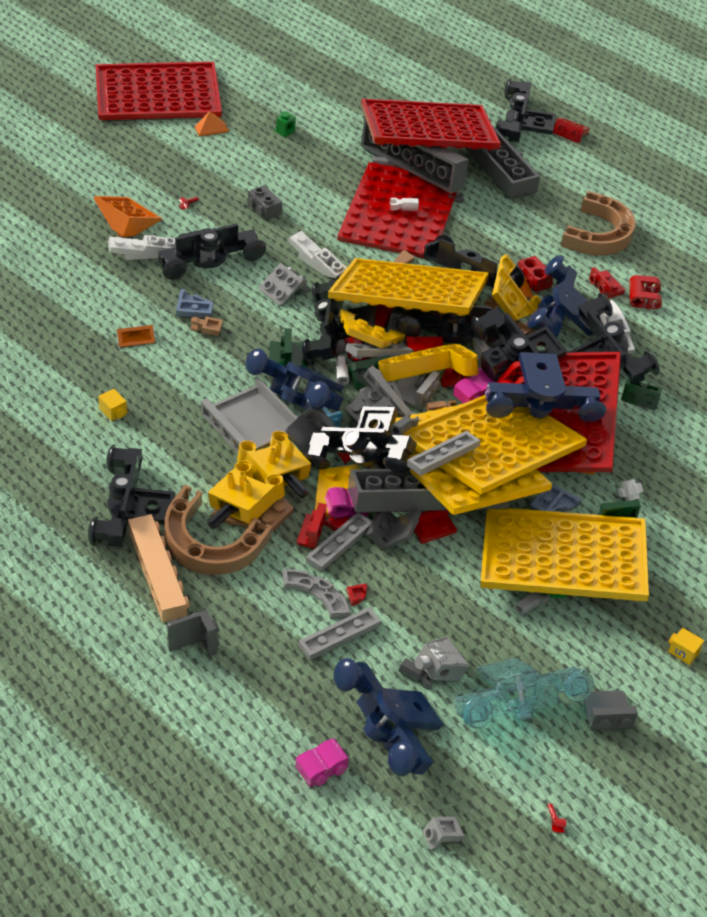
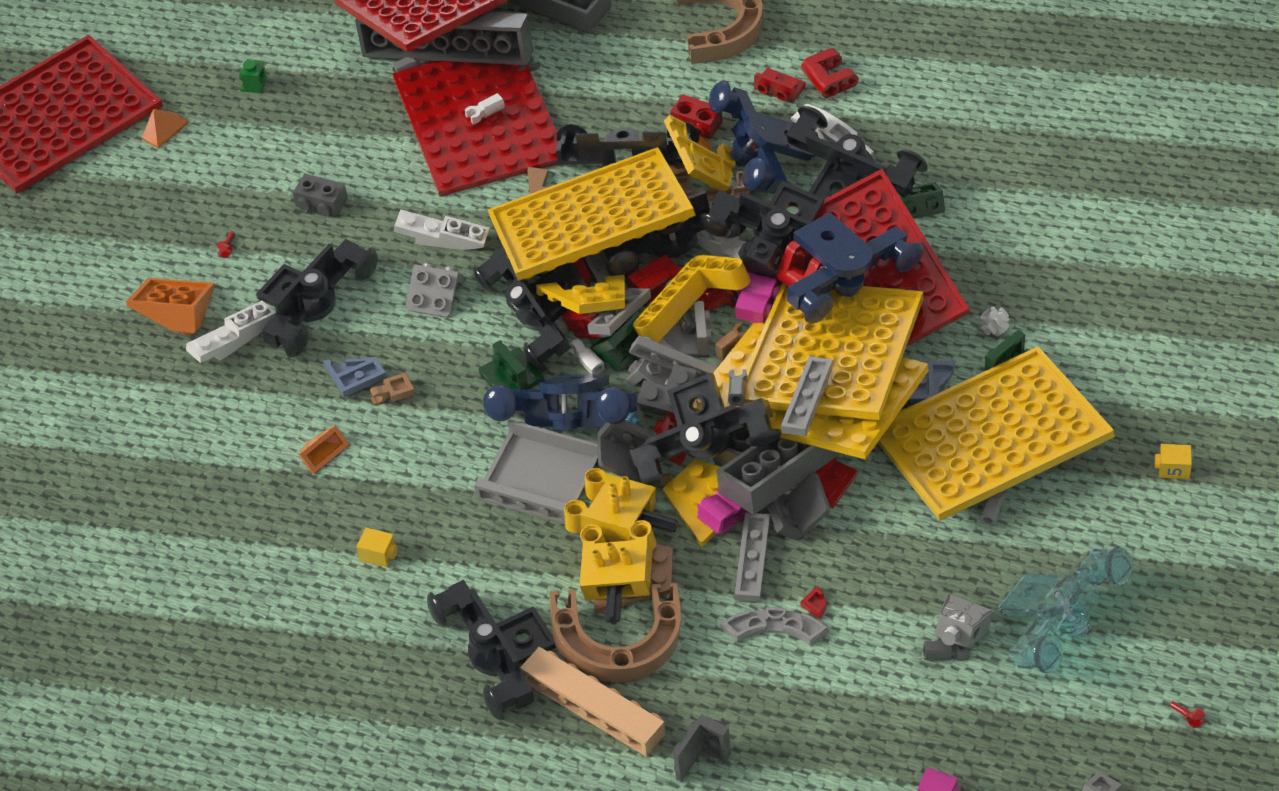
camera: 25 degrees left, 5 degrees up
(312, 527) = (713, 558): red bracket -> none
(335, 524) = (731, 538): red tile -> none
(339, 633) = (836, 656): light grey plate -> none
(402, 707) = (969, 693): dark blue piece -> none
(609, 711) = (1156, 574): dark grey bracket -> none

